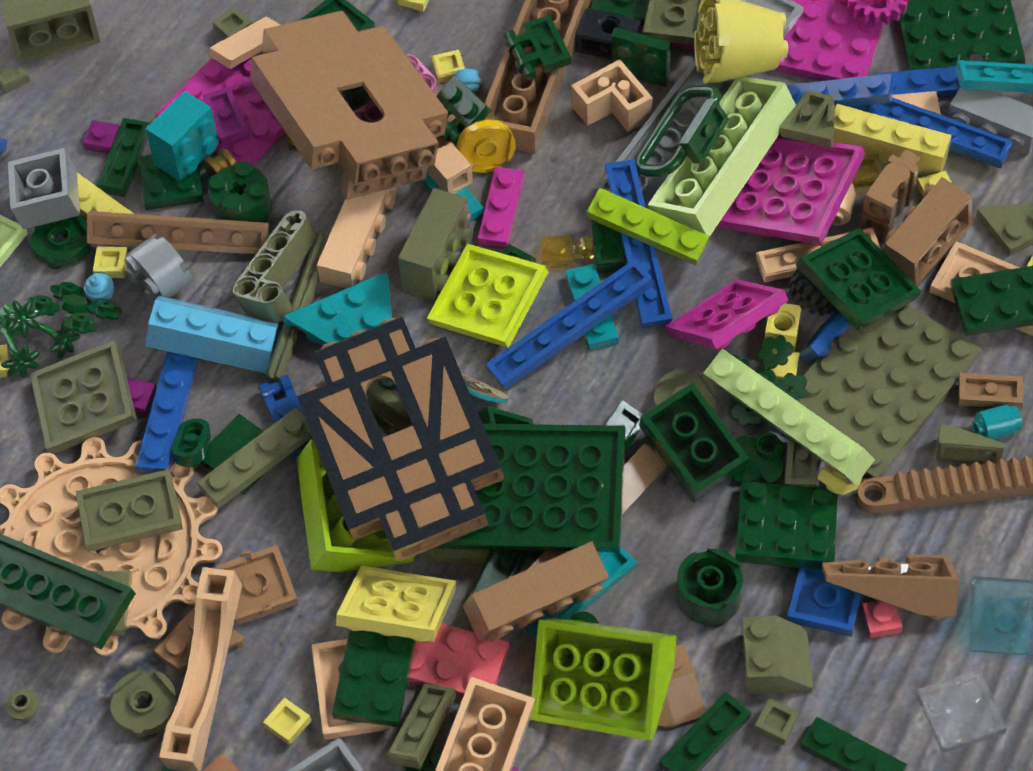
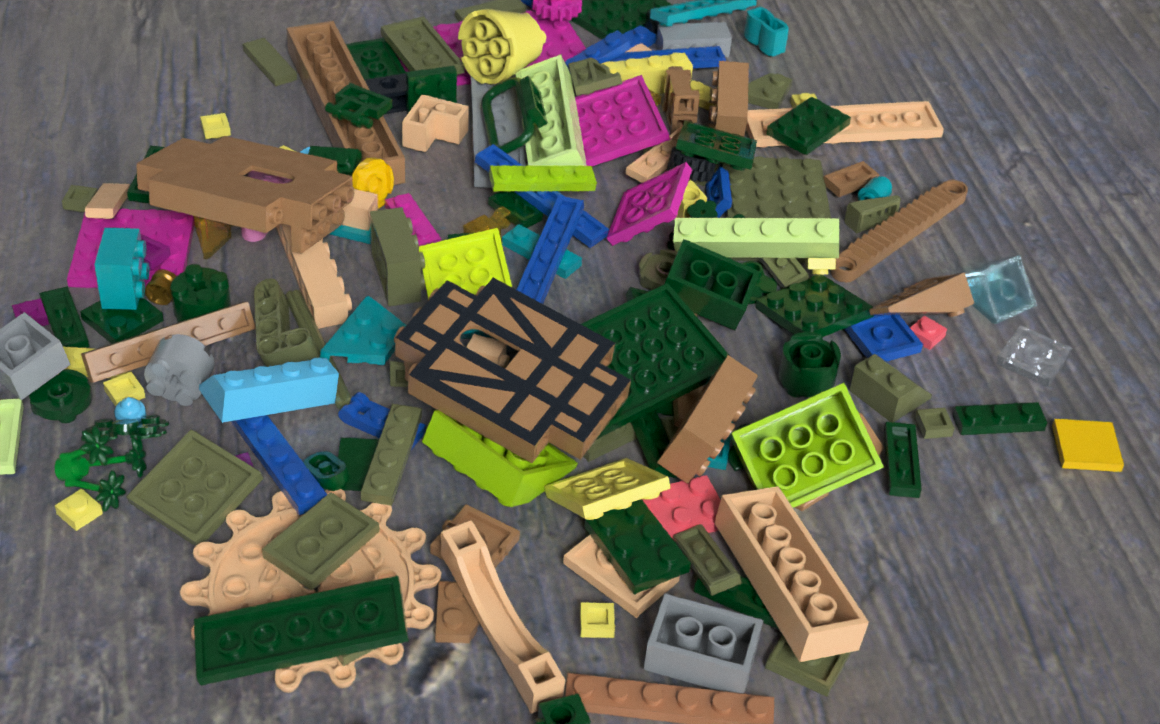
camera: 45 degrees left, 15 degrees down
(148, 720) = (465, 693): olive plate -> none

